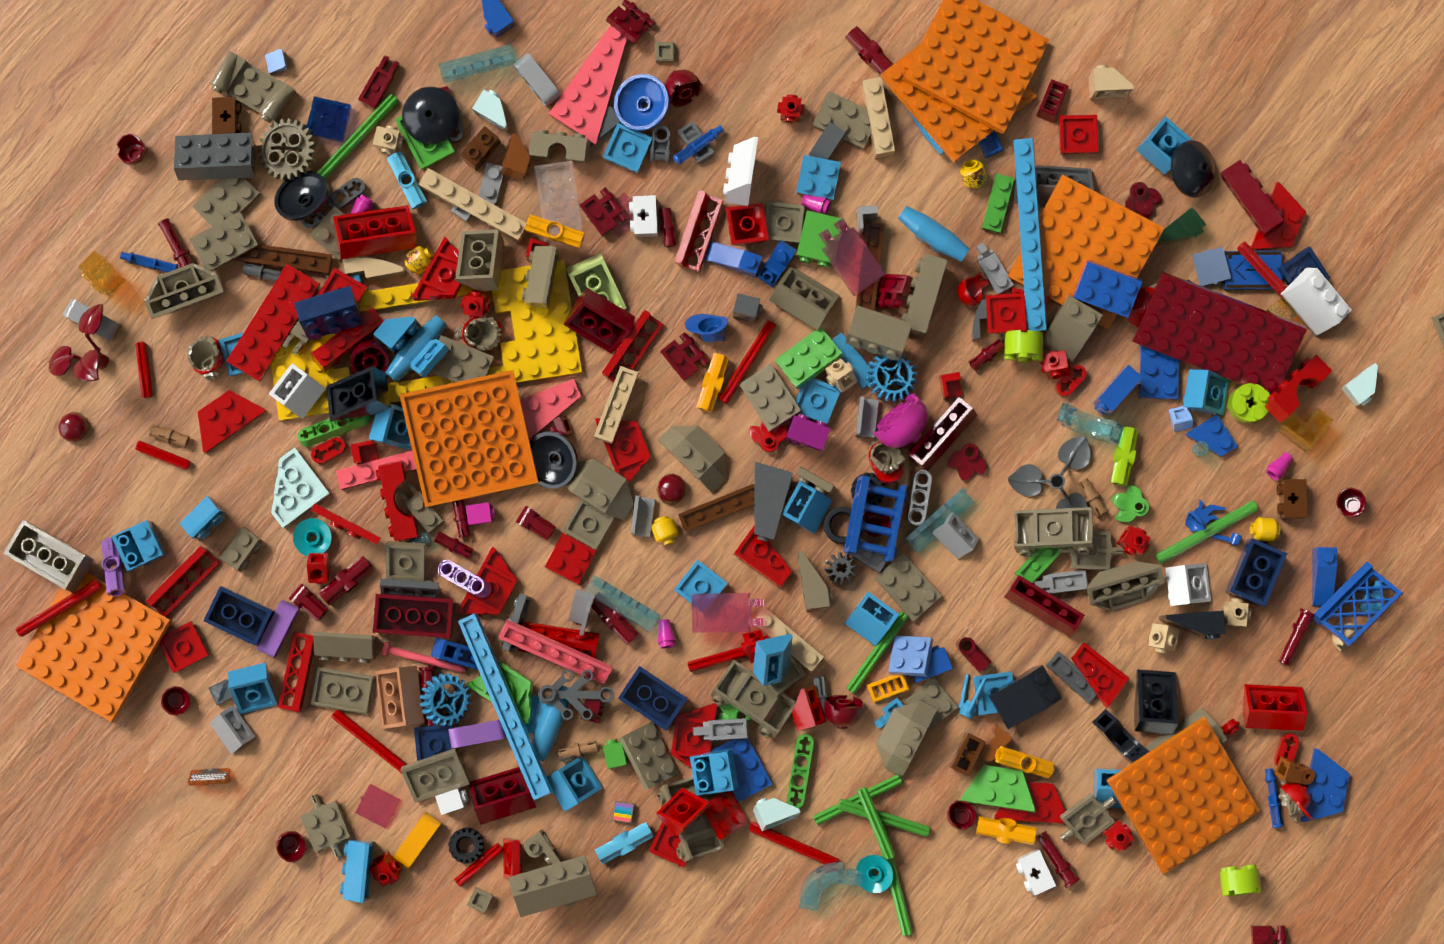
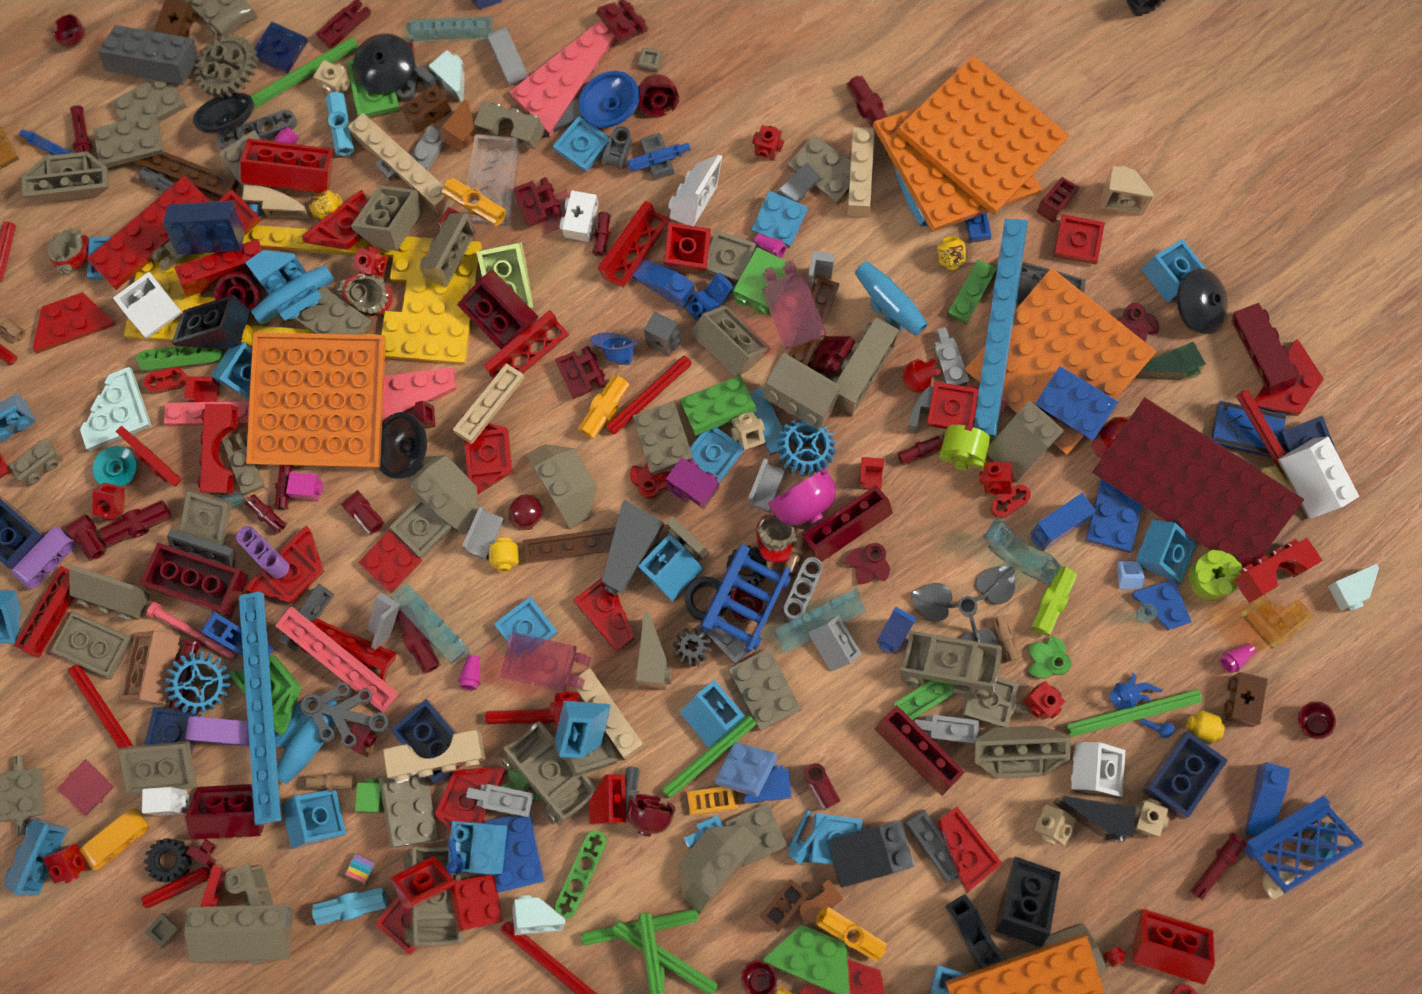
camera: 25 degrees right, 10 degrees down
(471, 118) = (425, 76): none -> dark grey tile
(493, 834) = (203, 853): none -> dark red tile
(639, 721) = (464, 750): none -> tan arch
(704, 790) = (456, 864): none -> blue hand
(1003, 515) = (895, 630): none -> blue slope
(1211, 266) = (1202, 412): sand blue piece -> none

